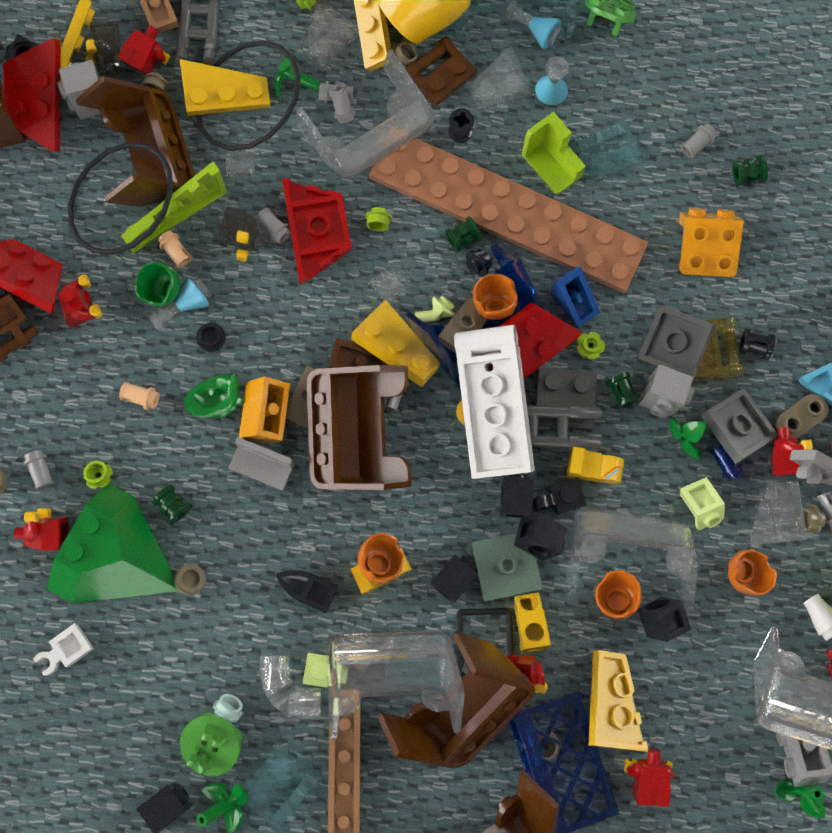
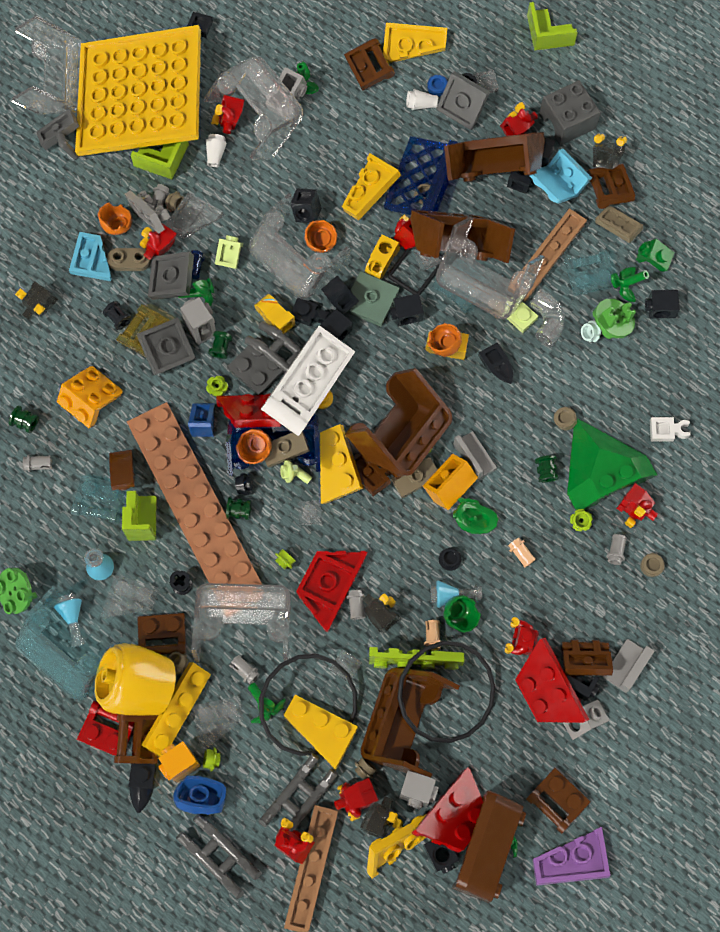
camera: 140 degrees left, 5 degrees down
(343, 110) = (249, 652): light grey pin -> none
(610, 186) = (121, 470): none -> reddish brown slope
(651, 779) = (381, 137): red piece -> none
(751, 573) = (235, 196): orange hair -> none

